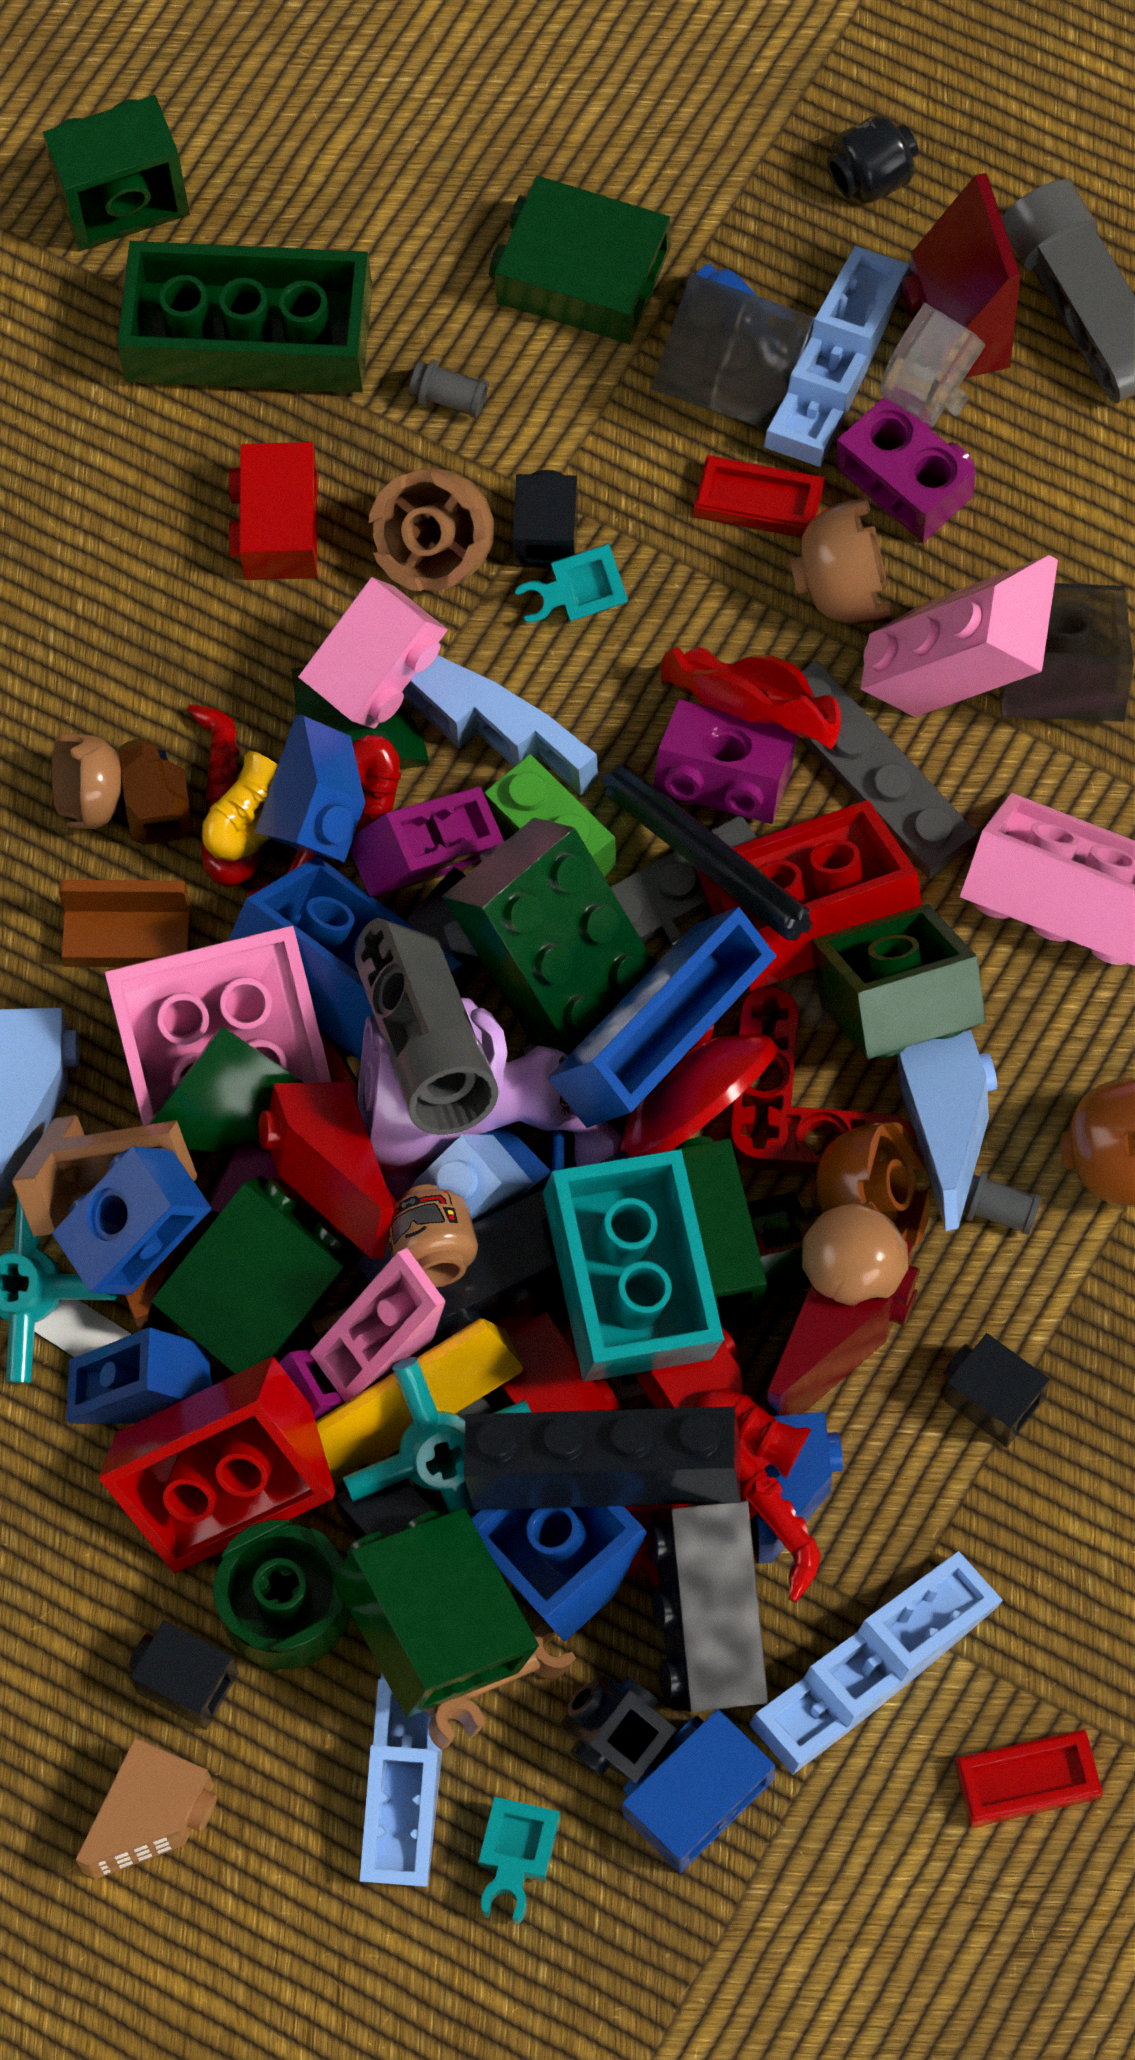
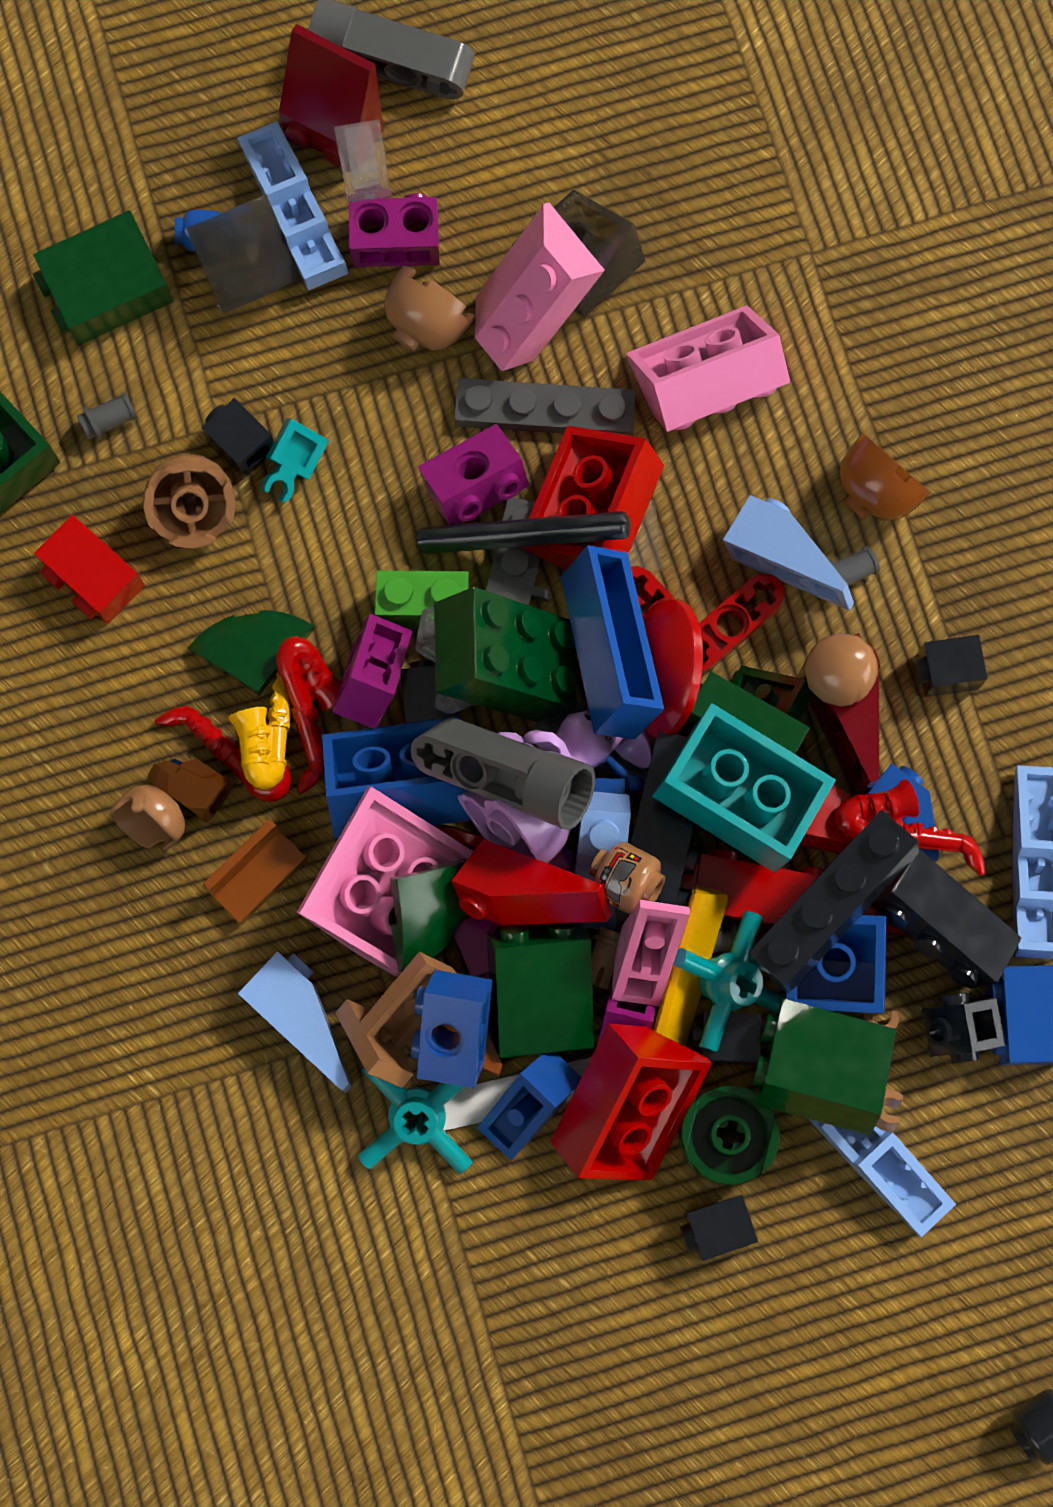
camera: 50 degrees left, 10 degrees up
(147, 1810) = (779, 1315): medium nougat slope -> none
(314, 792) = (291, 703): blue slope -> none
(374, 654) = (239, 597): bright pink brick -> none
(470, 704) = (301, 577): light blue slope -> none
(517, 1847) = (974, 1136): teal plate -> none
(755, 690) = (450, 423): red piece -> none
(758, 496) = (332, 319): red tile -> none
(872, 159) = (197, 81): black head -> none
(874, 1169) = (786, 626): dark orange cylinder -> none
(898, 981) = (692, 504): dark green brick -> none

